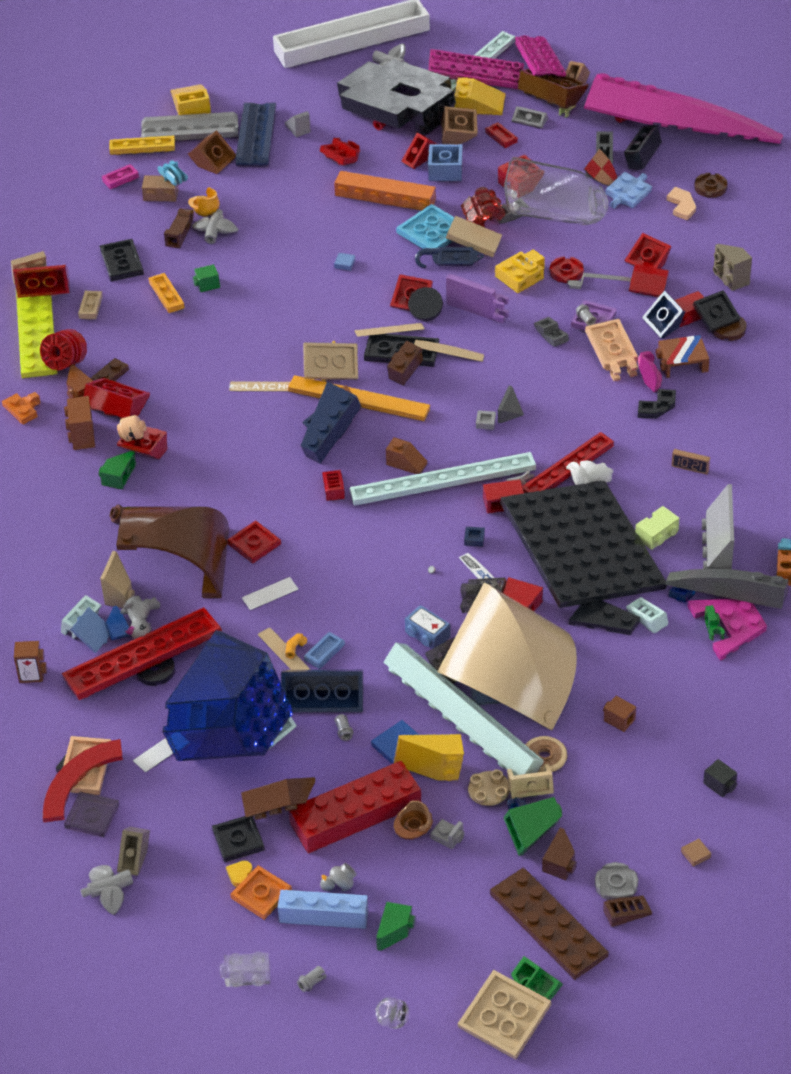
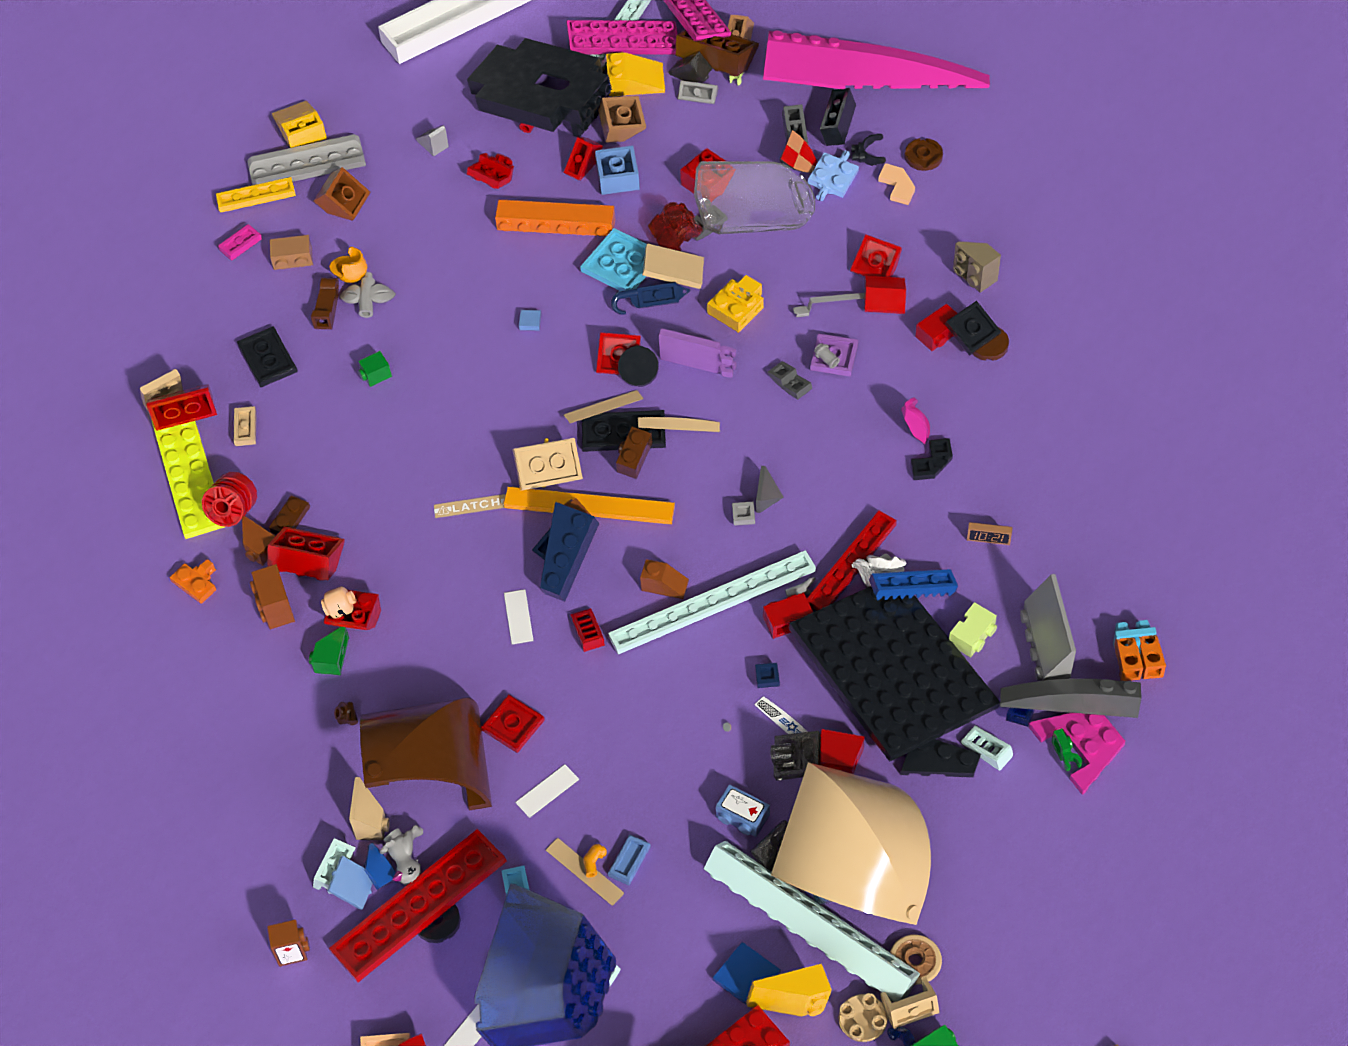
camera: 10 degrees left, 10 degrees up
(166, 293) = (331, 395): light orange plate -> none
(172, 173) = (303, 234): medium azure arm -> none
(256, 134) = (386, 160): dark blue plate -> none
(279, 469) = (518, 616): none -> white sticker
(324, 690) = (642, 917): dark blue slope -> none
(344, 732) = (679, 969): light grey pin -> none
(396, 53) = (523, 29): light grey plant -> none
(501, 135) = (670, 120): red tile -> none
(529, 98) = (691, 68): none -> clear smoke slope
(559, 274) = (784, 301): red tile -> none
(613, 348) = (866, 393): light nougat tile -> none
(614, 485) = (913, 583): none -> blue gear
(619, 713) = (988, 890): dark orange brick -> none
(655, 176) = (860, 153): none -> black helmet
(664, 315) = (914, 341): dark blue slope -> none
(682, 352) = (946, 389): dark orange panel -> none
(720, 778) = (1123, 958): pearl dark grey brick -> none

